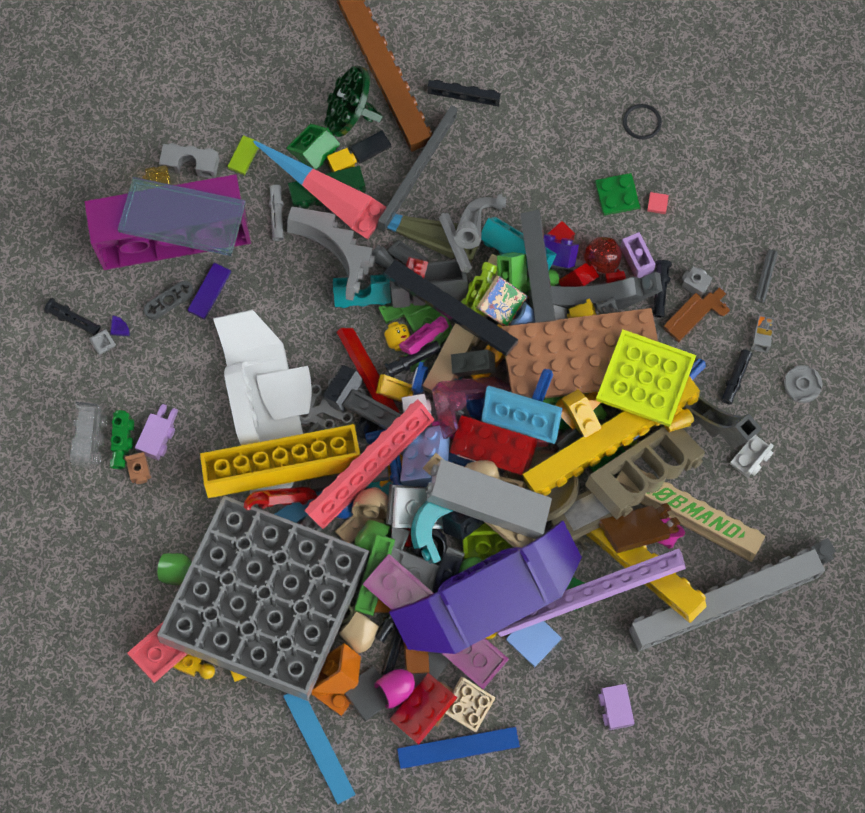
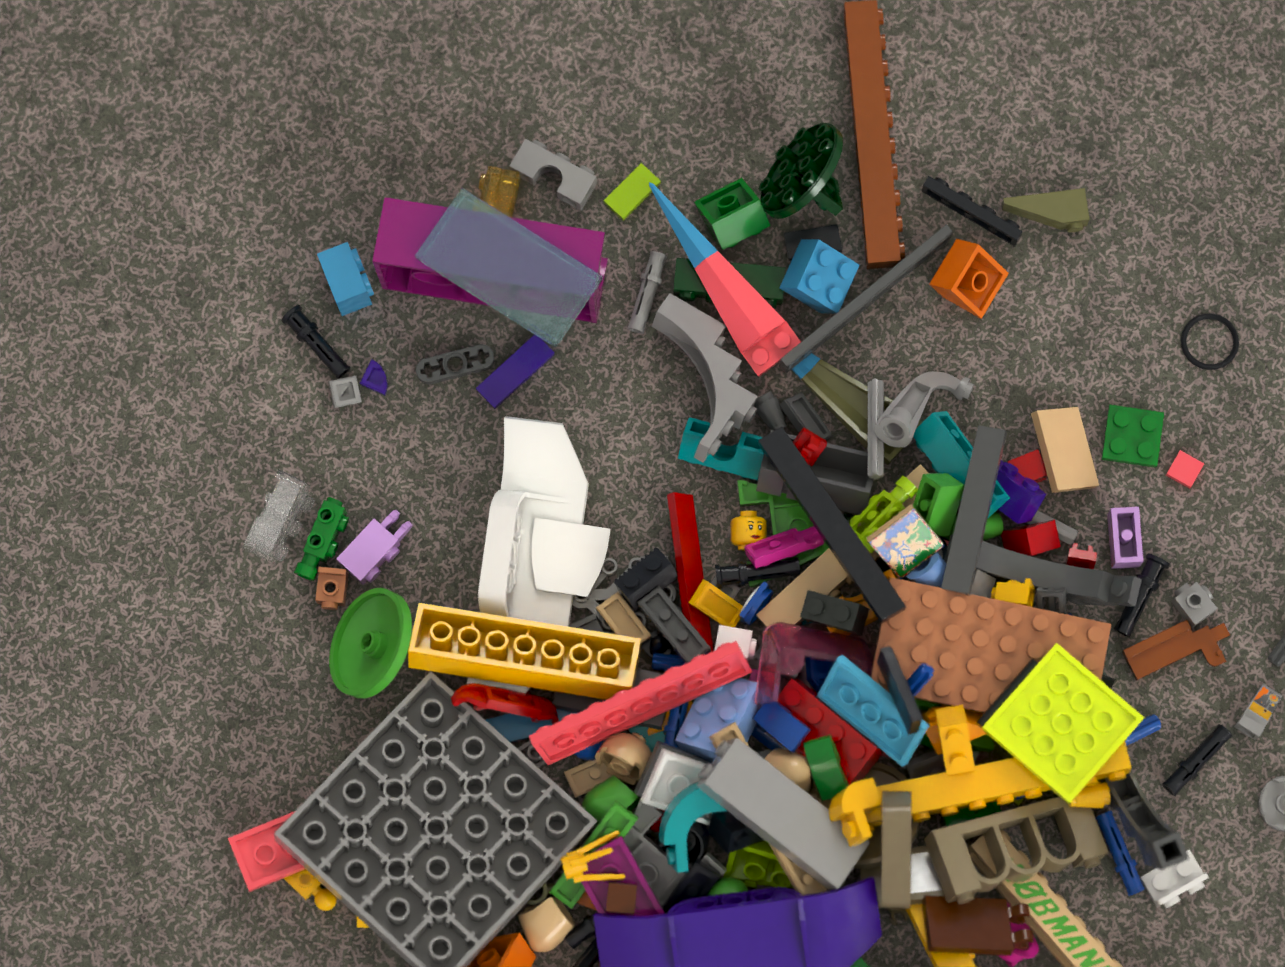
camera: 25 degrees right, 5 degrees up
(77, 269) = (343, 275): none -> dark azure brick
(173, 568) = (330, 744): bright green piece -> none
(177, 492) = (370, 643): none -> bright green dish
(335, 418) = (622, 618): none -> tan tile
(341, 160) = (764, 250): yellow brick -> none
(365, 581) = (575, 862): none -> yellow plant
(383, 163) = (819, 276): none -> dark azure brick
(403, 593) = (621, 897): none -> reddish brown tile
(466, 445) = (782, 725): none -> blue slope
(477, 133) = (969, 277): none -> orange slope
(505, 461) = (825, 766): none -> green slope
(516, 74) = (1056, 209): none -> olive slope
(533, 478) = (850, 808): none -> yellow brick
(535, 392) = (899, 690): none -> black tile
(571, 496) = (896, 849): none -> dark tan beam
(578, 215) = (1065, 449): none -> tan tile
(603, 254) = (1076, 519): clear red cylinder -> none
(603, 372) = (1006, 693): none -> black bar
(716, 457) = (1120, 853): none -> blue pin

